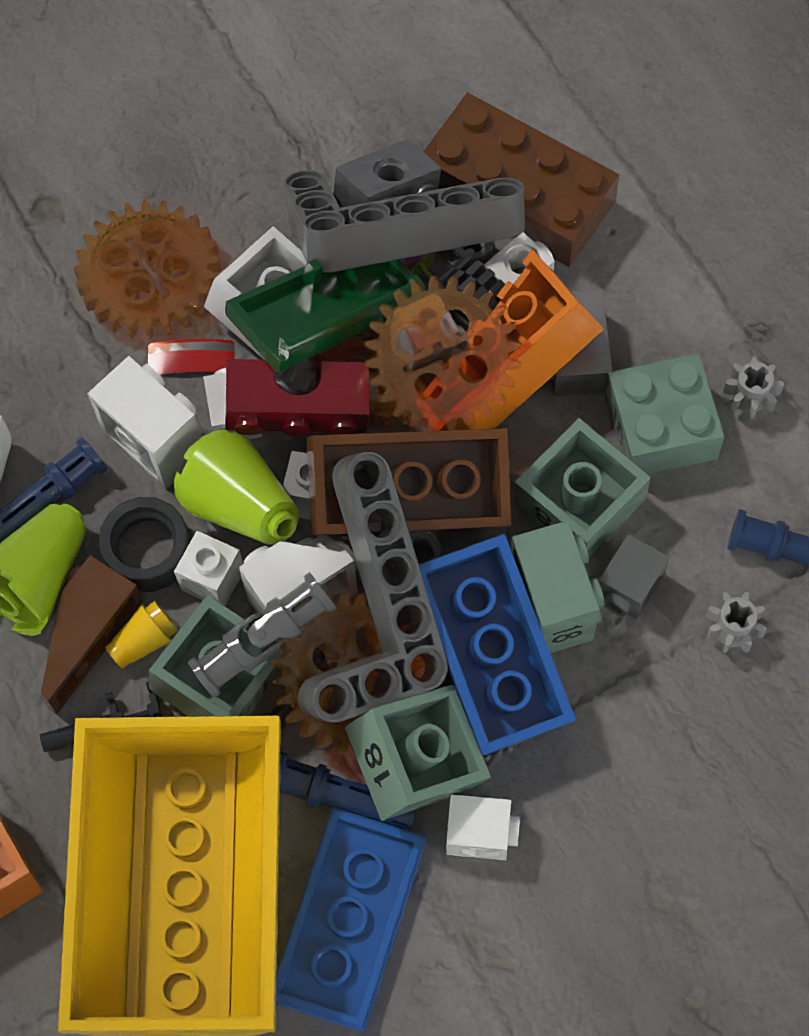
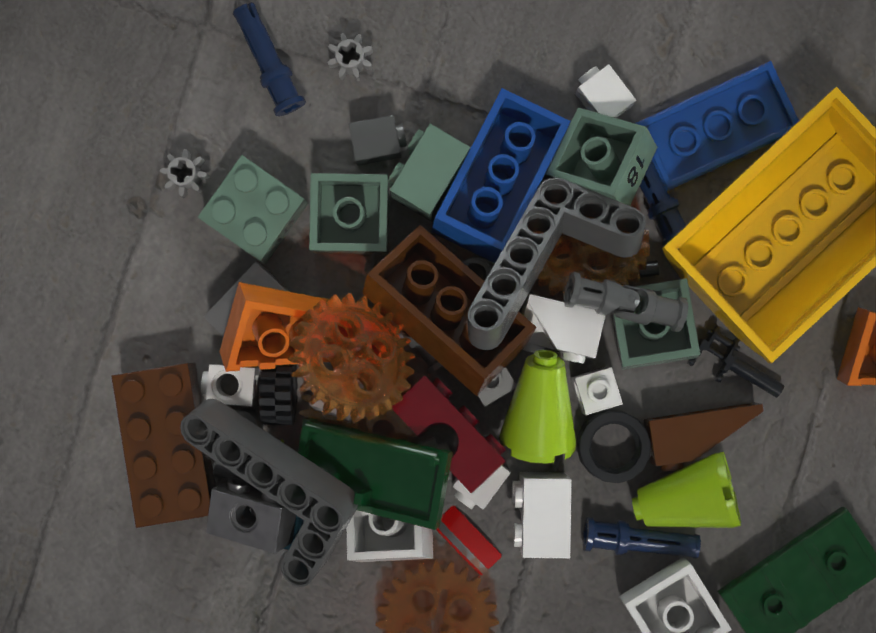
camera: 135 degrees left, 20 degrees up
(143, 634) = (667, 394): yellow cone -> none

